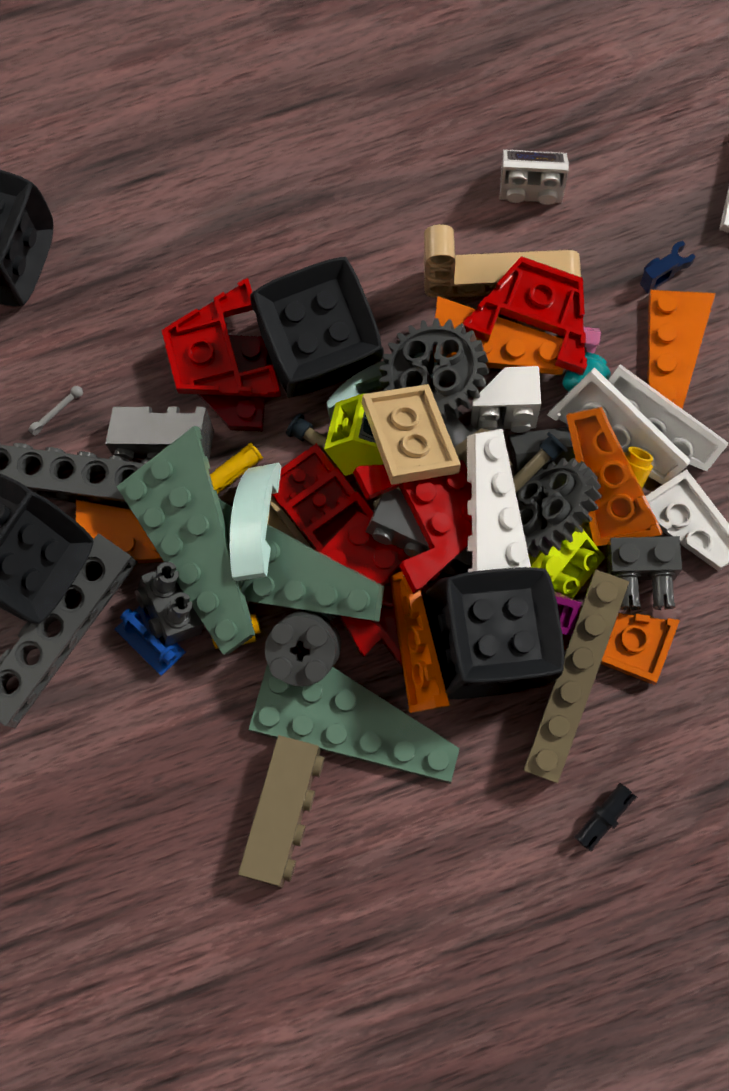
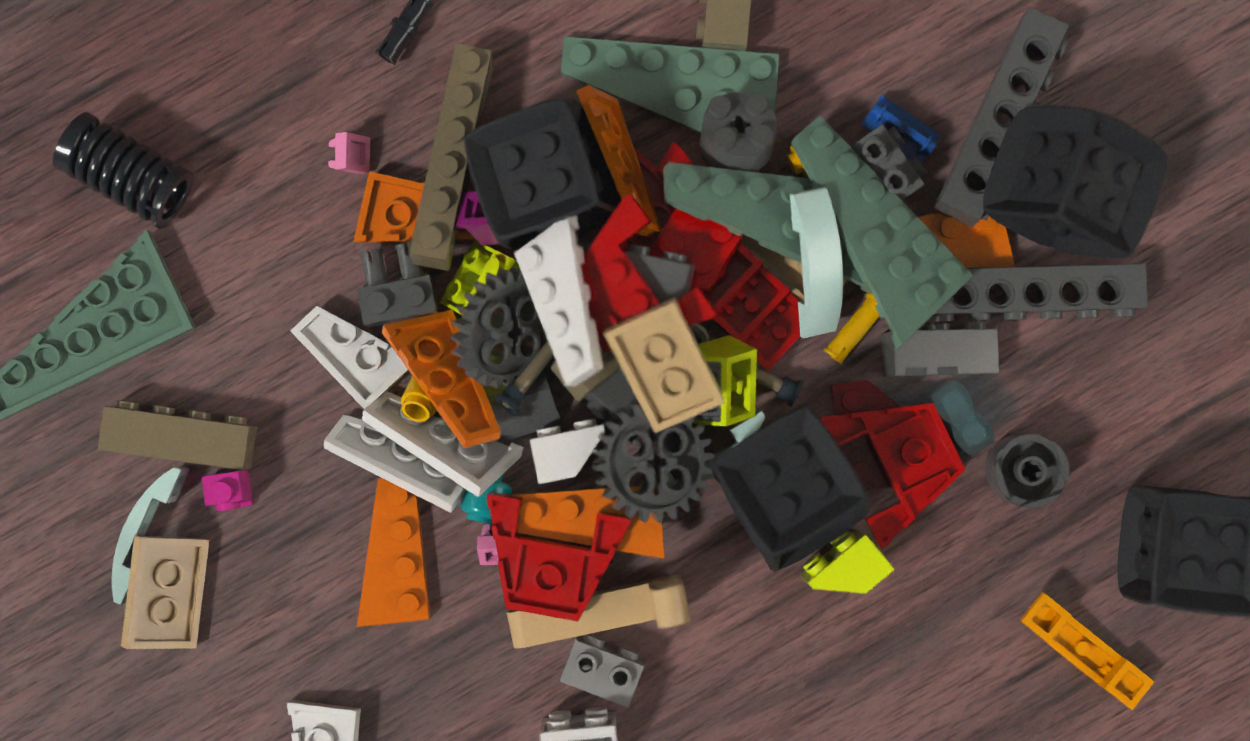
camera: 160 degrees right, 15 degrees up
(36, 427) = (1045, 393): light grey hinge -> none
(92, 183) = (1086, 651): none -> light orange slope
(108, 326) = (1043, 482): none -> dark grey brick
(155, 377) = (966, 427): none -> clear light blue brick
(276, 258) = (847, 567): none -> neon yellow slope
(504, 225) = (602, 669): none -> light grey brick
(662, 270) = (420, 644): dark blue plate -> none
(672, 703) = (351, 153): none -> bright pink tile

